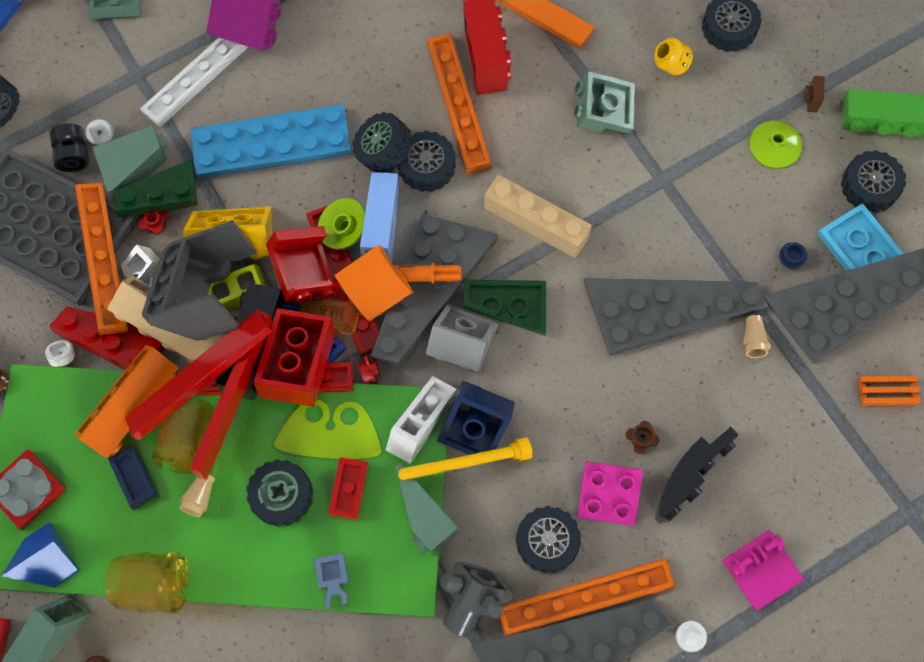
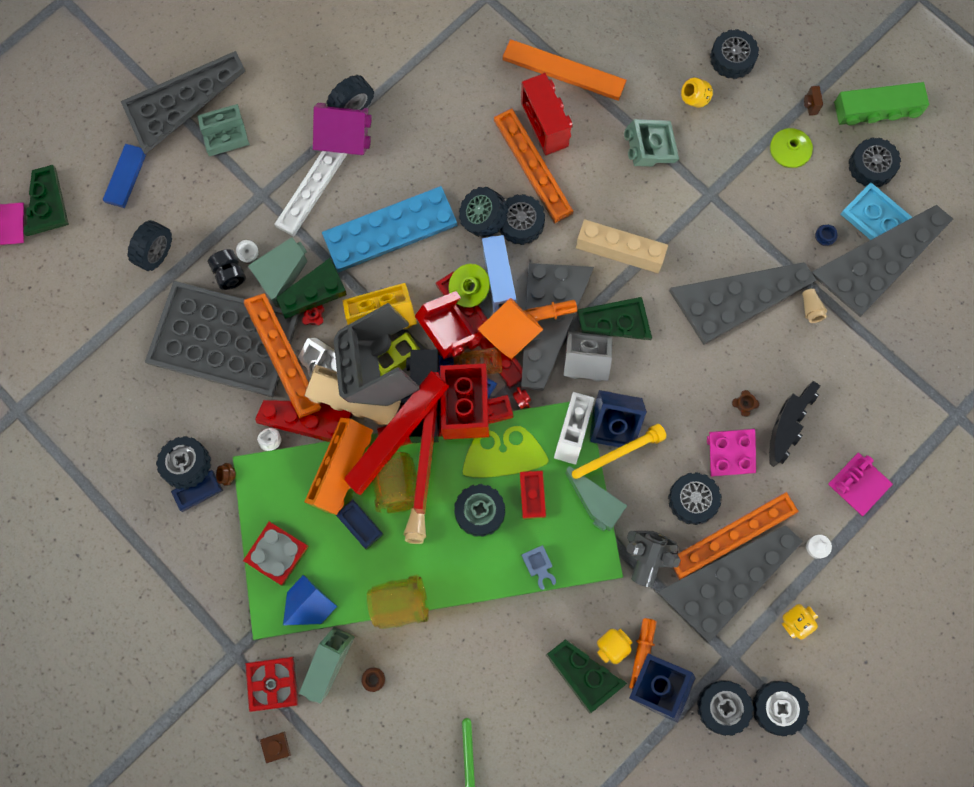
camera: 15 degrees left, 5 degrees up
(913, 389) = (939, 321): orange tile -> none

